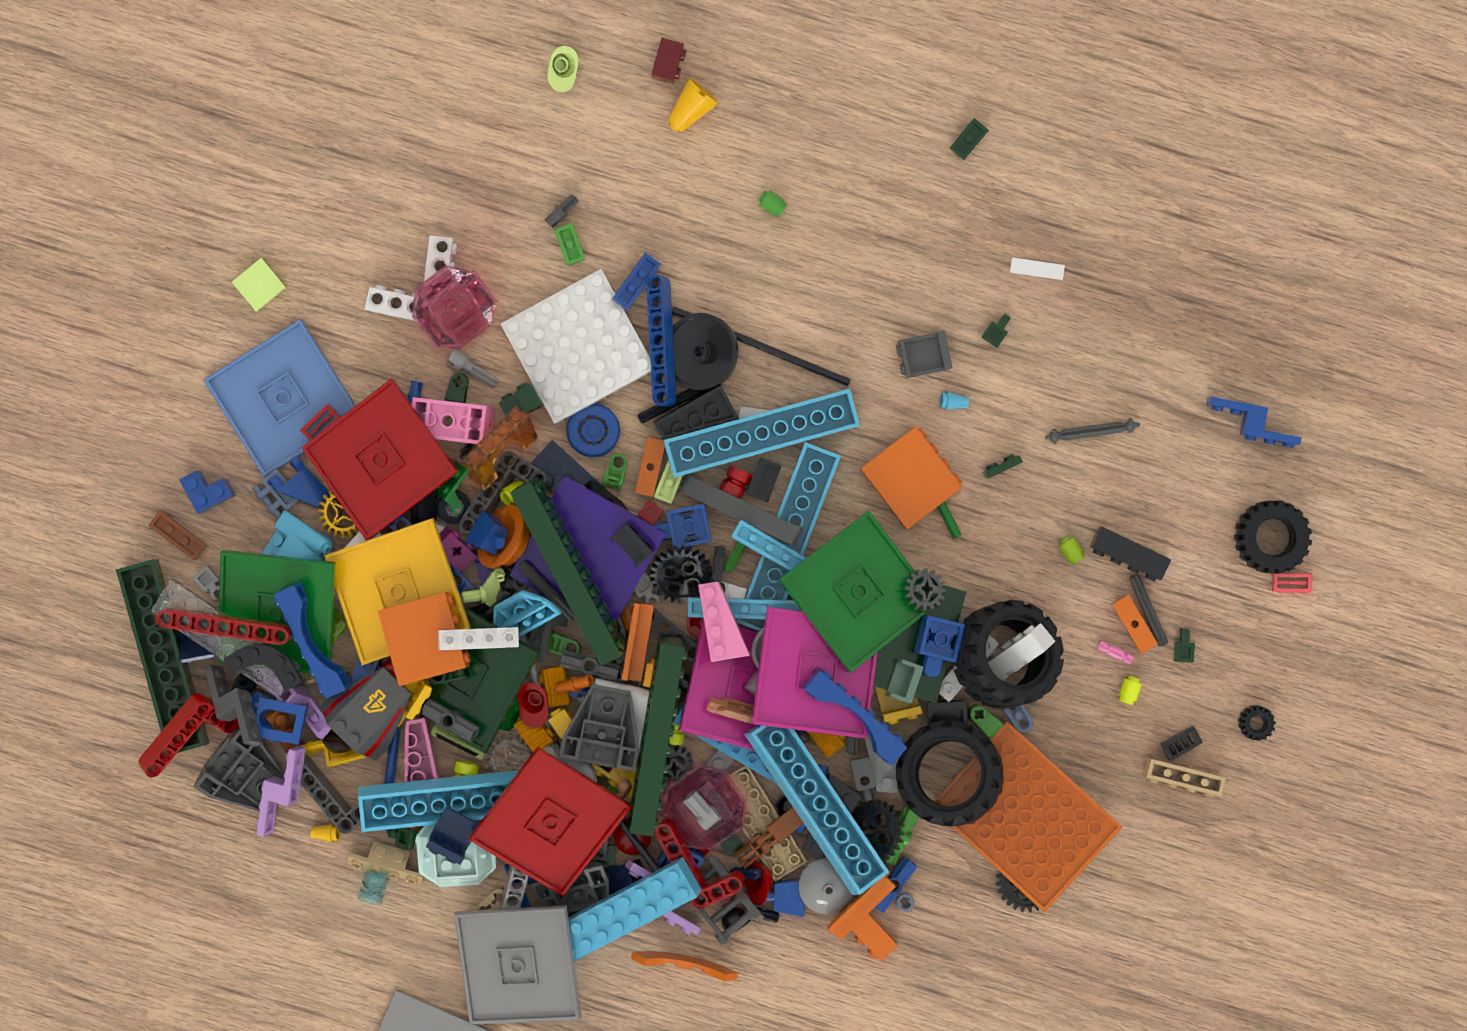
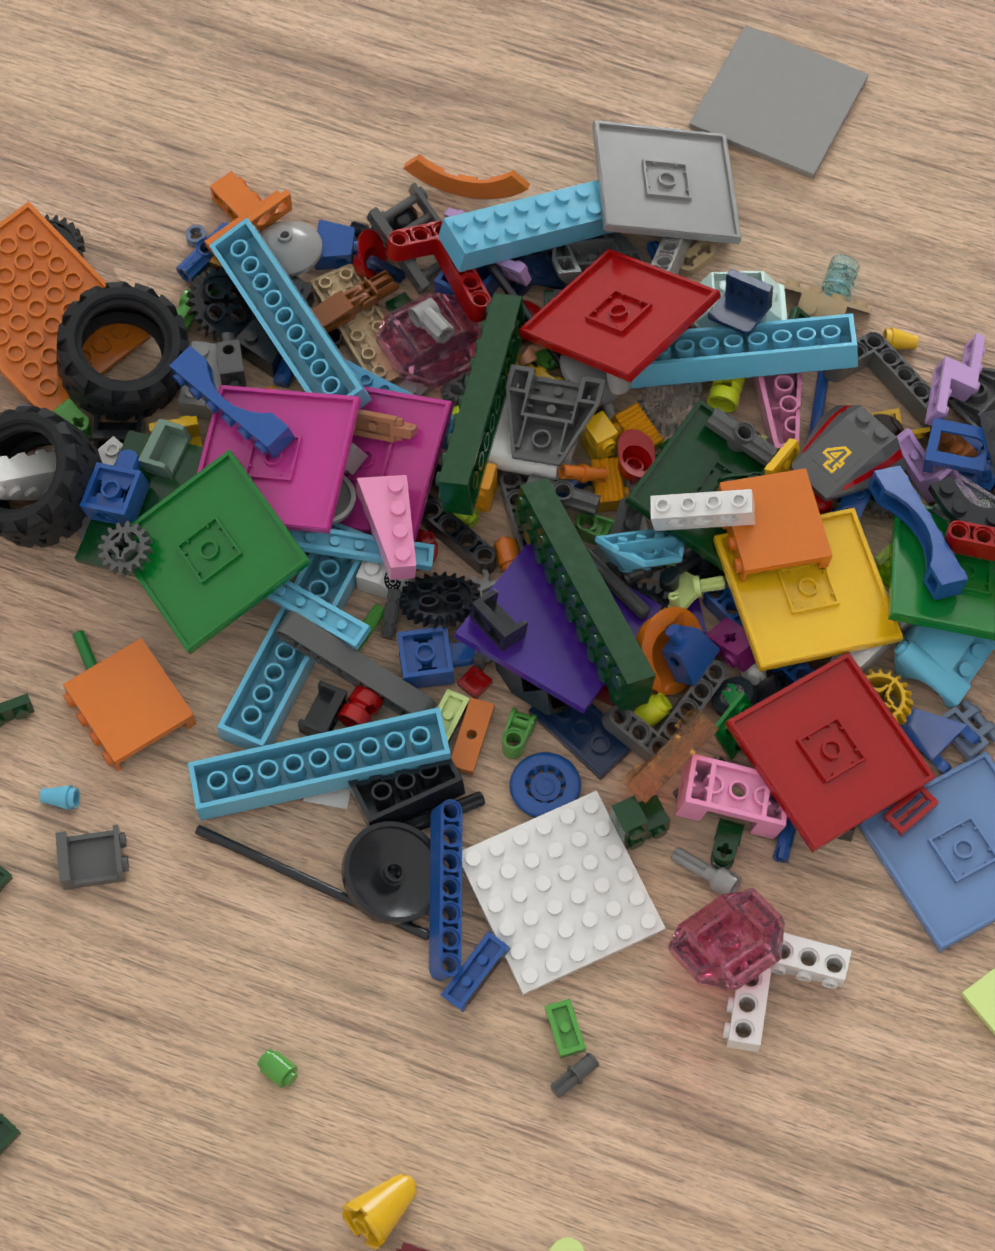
camera: 175 degrees left, 25 degrees down
(637, 642) = (500, 521): orange fence -> none

